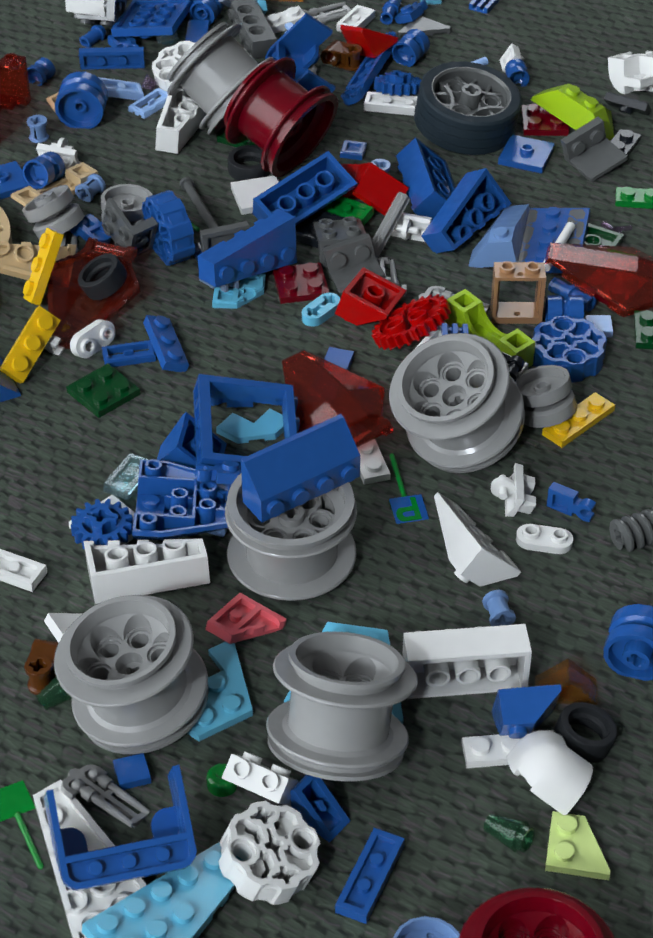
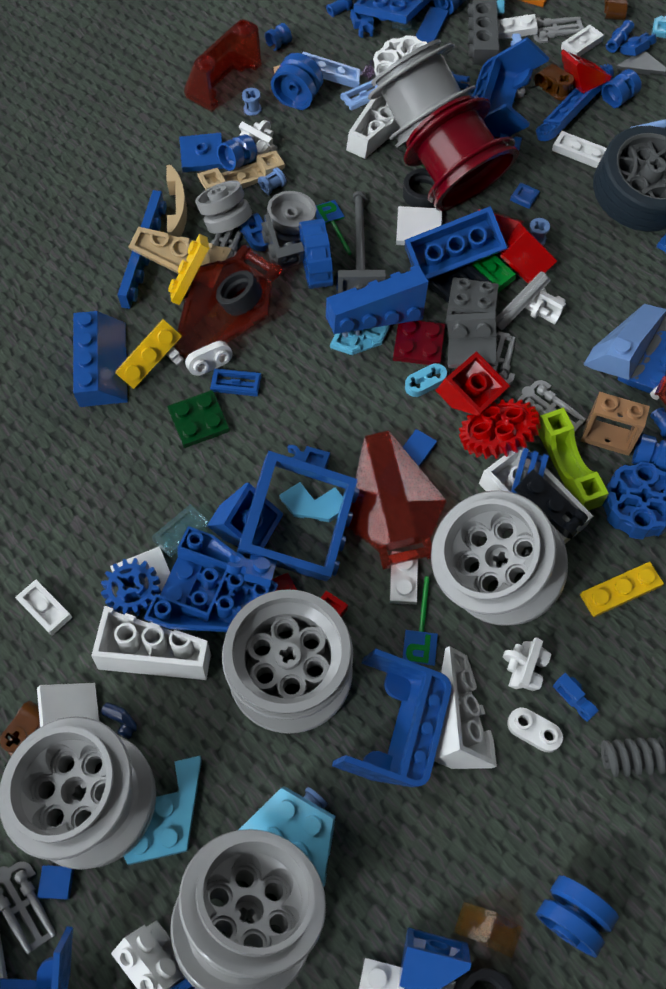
camera: 20 degrees right, 20 degrees up
(112, 58) = (345, 35): blue plate -> none
(165, 343) = (271, 381): blue plate -> none
(217, 785) = (127, 922): green piece -> none
(244, 620) = (217, 739): coral wing -> none
(299, 468) = (301, 630): blue slope -> none
(397, 83) = (593, 129): blue gear -> none
(426, 177) = (580, 256): blue slope -> none
(430, 536) = (418, 725): none -> blue windscreen
(465, 211) = (600, 305): blue wedge -> none
(468, 660) = (398, 875): white brick -> none
(497, 604) = (457, 808): medium blue bush -> none
(546, 395) = (595, 560): light grey wheel -> none

